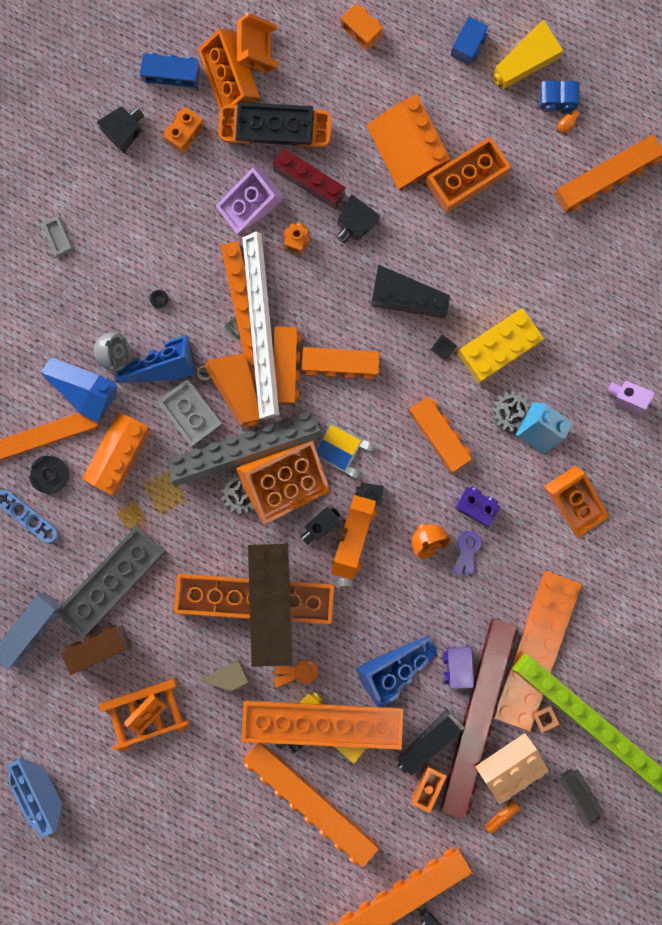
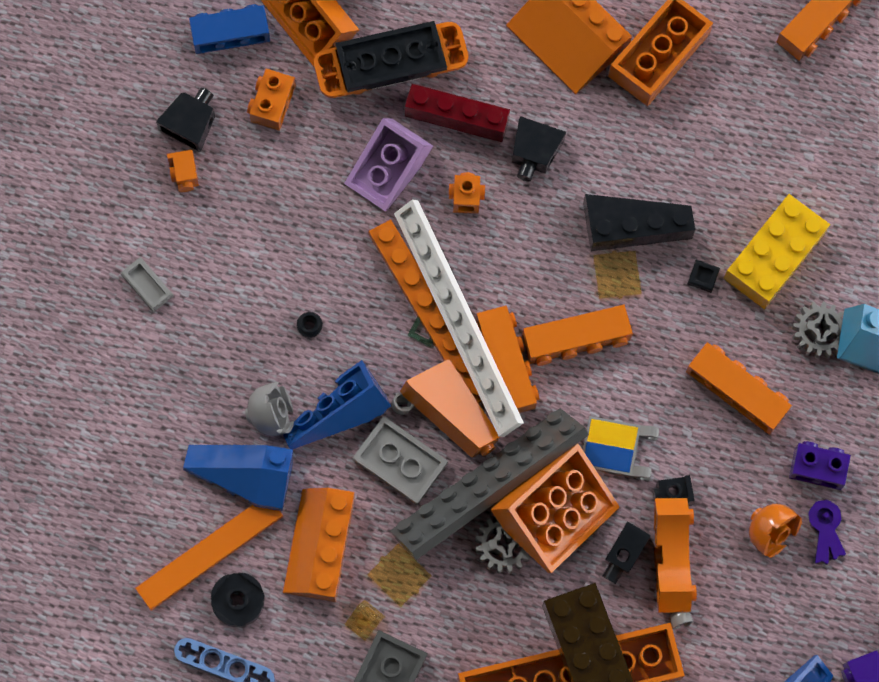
camera: 20 degrees left, 10 degrees down
(106, 163) = (184, 170): none -> orange brick
(383, 328) = (617, 274): none -> clear yellow piece

